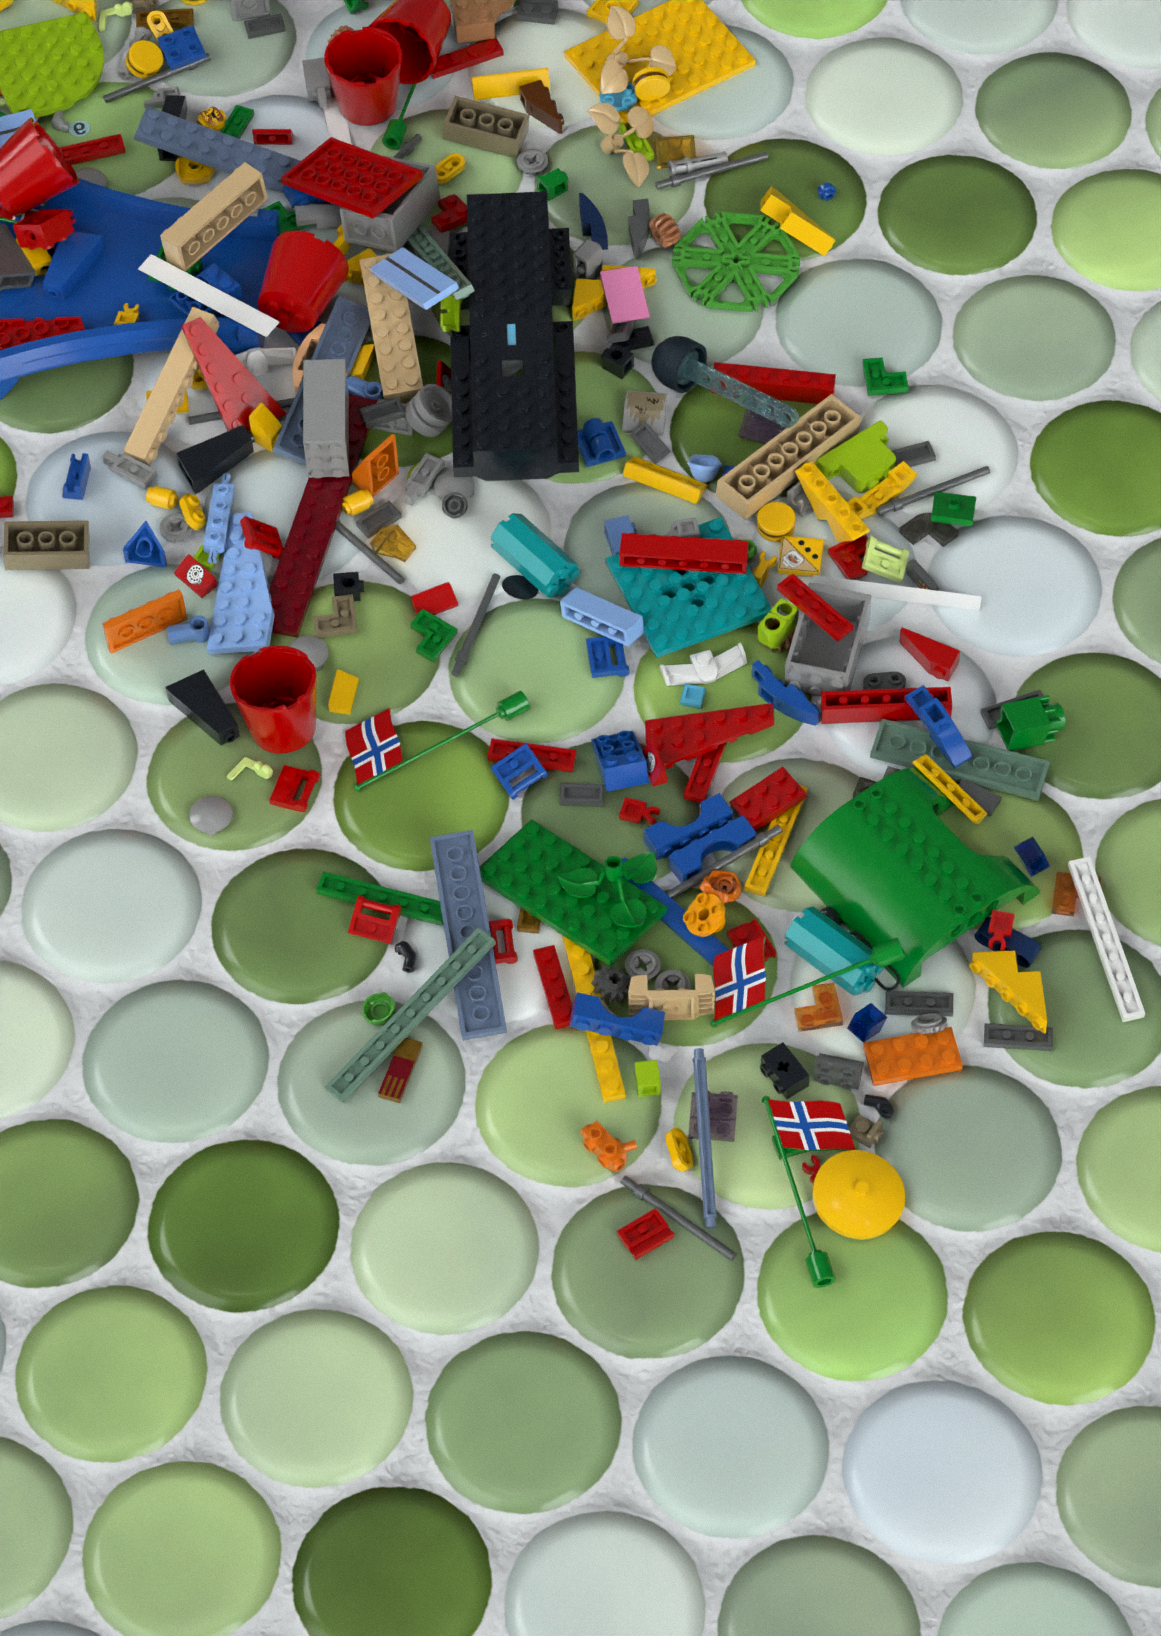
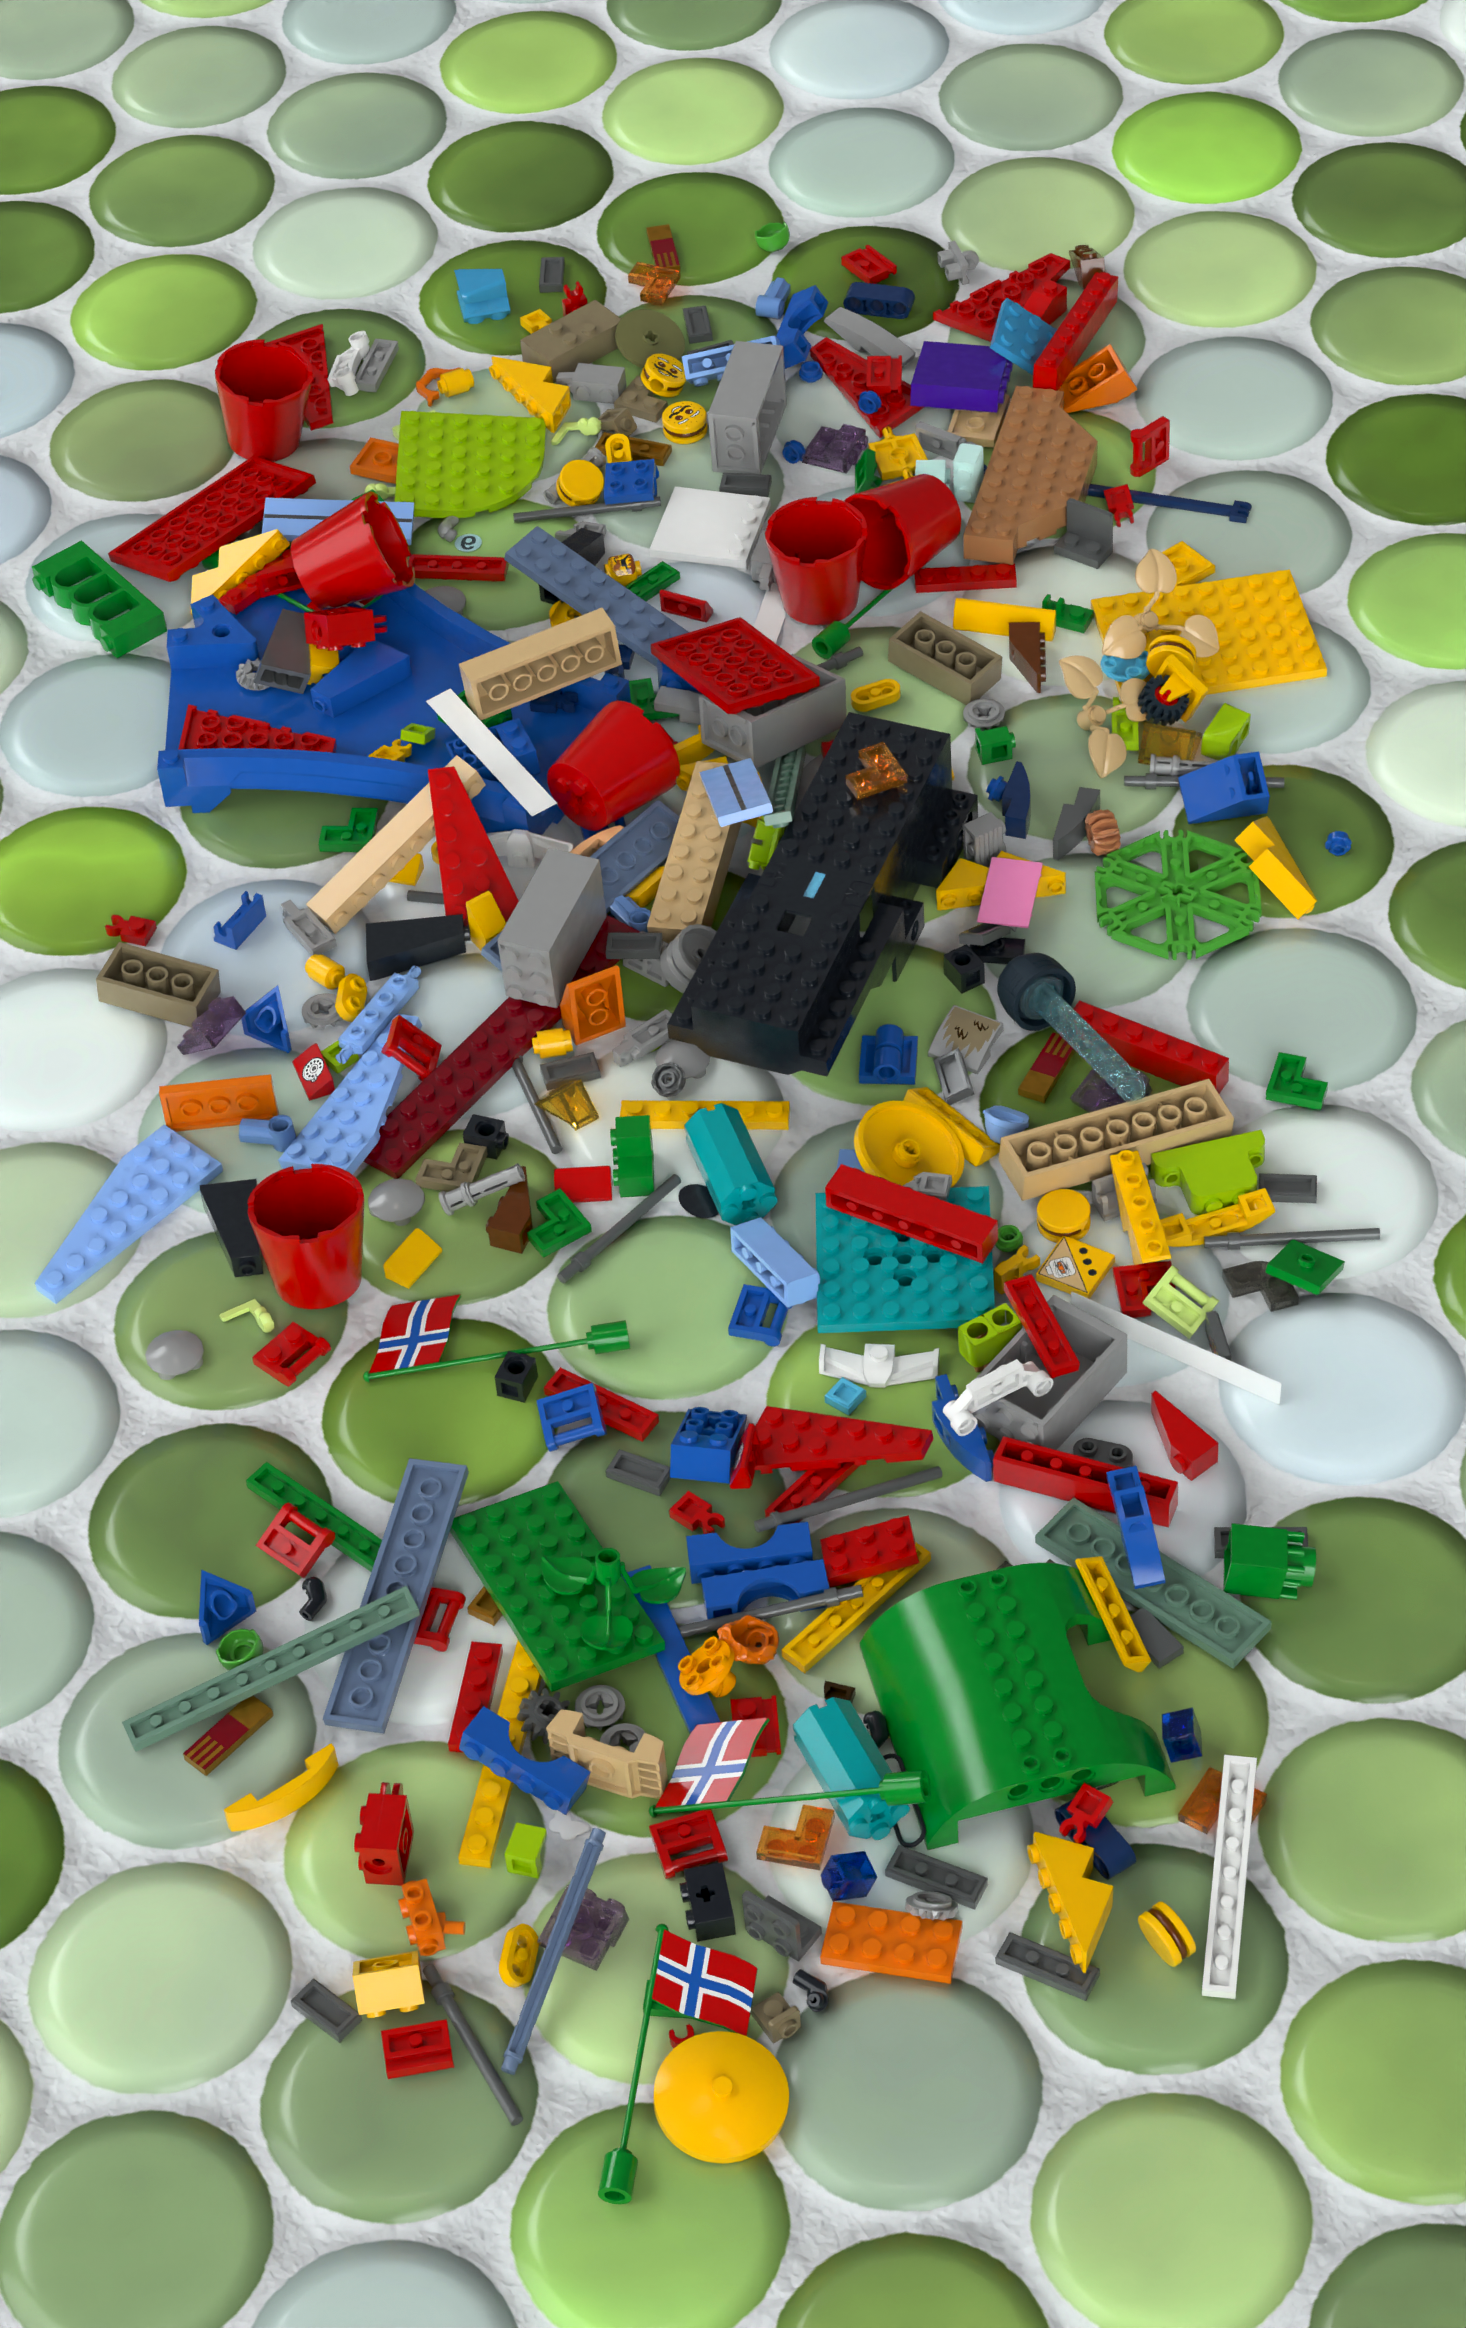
camera: 25 degrees right, 10 degrees down
(105, 565) = (212, 1025): none -> clear purple plate
(117, 708) = (134, 1198): none -> light blue wing
(124, 388) = (352, 837): none -> green plate
(138, 294) = (417, 733): none -> lime tile
(226, 242) = (555, 700): none -> dark blue plate
(256, 67) = (710, 527): none -> white plate
(350, 982) = (222, 1606): none -> blue slope
(361, 632) = (469, 1193): none -> light grey pin
(401, 639) = (512, 1219): none -> reddish brown slope
(451, 1116) = (250, 1813): none -> yellow slope
(462, 570) = (633, 1156): none -> green brick
(465, 761) = (516, 1376): none -> black brick
(486, 523) = (675, 1114): none -> yellow plate
(518, 236) = (880, 773): none -> clear orange plate
(552, 1102) = (385, 1836): none -> red brick
(557, 67) = (1069, 616): none -> green plate
(569, 1230) = (326, 2010): none -> dark grey tile
(572, 217) = (996, 789): none -> blue plate
(604, 1197) = (388, 1984): none -> yellow slope
(649, 503) = (904, 1140): none -> yellow dish
(664, 110) = (1172, 693): none -> plate
(697, 798) = (847, 1499): none -> dark grey bar
(710, 417) = (1046, 1069): none -> tile
(711, 130) = (1225, 733): none -> lime piece
(733, 173) = (1225, 789): none -> blue slope
(745, 1031) = (686, 1834): none -> red plate
(794, 905) = (838, 1691): none -> dark brown tile
(802, 664) = (992, 1387): none -> white plate
(1087, 990) = (1167, 1933): none -> yellow head

